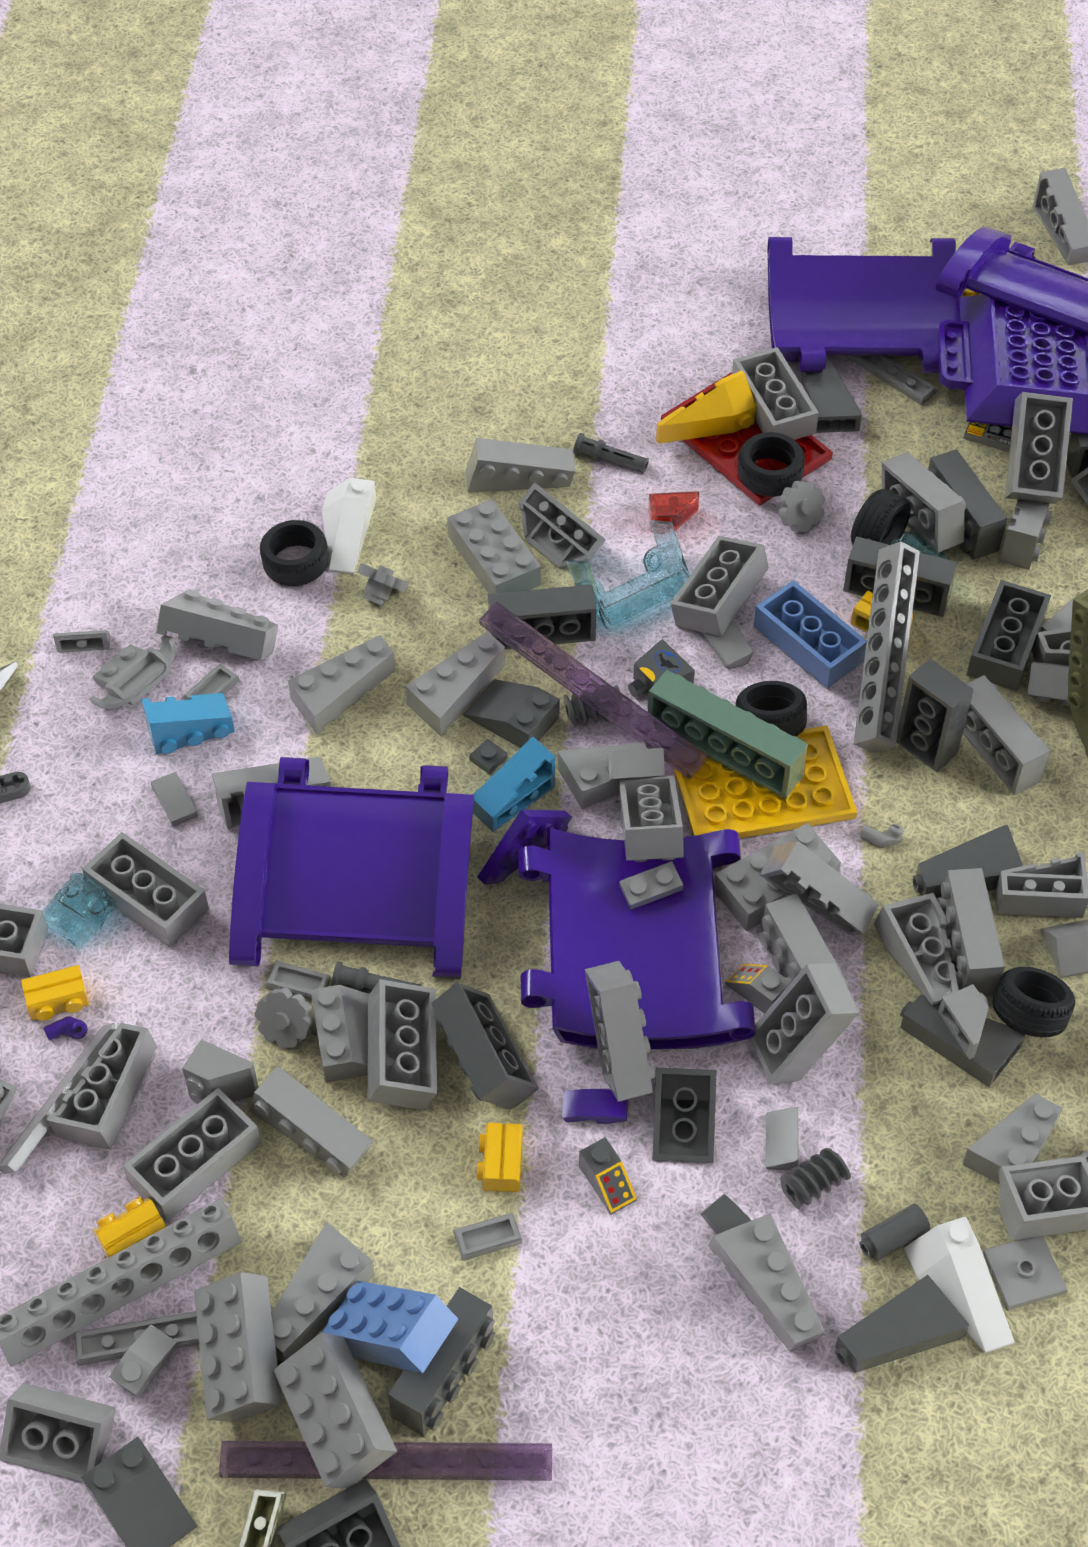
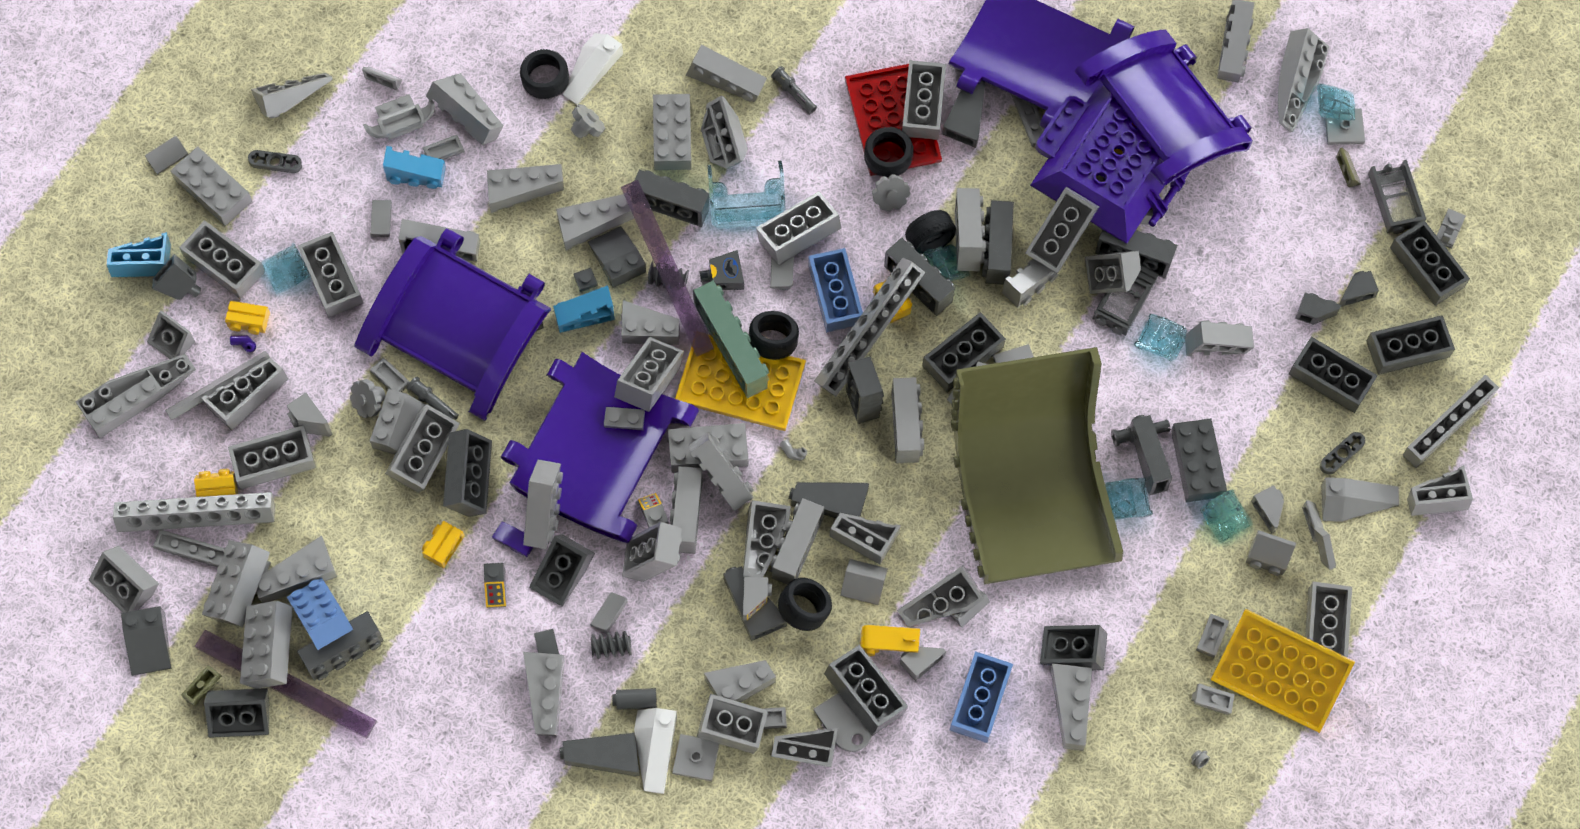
camera: 25 degrees right, 15 degrees up
(143, 1360) = (185, 564): light grey slope -> none
(309, 1122) = (346, 470): light grey wedge -> none
(487, 1236) = (410, 586): light grey tile -> none
(526, 830) = (568, 350): dark purple plate -> none
(636, 763) = (663, 333): light grey tile -> none
(673, 507) = (806, 154): clear red slope -> none
(716, 413) = (880, 95): yellow wedge -> none

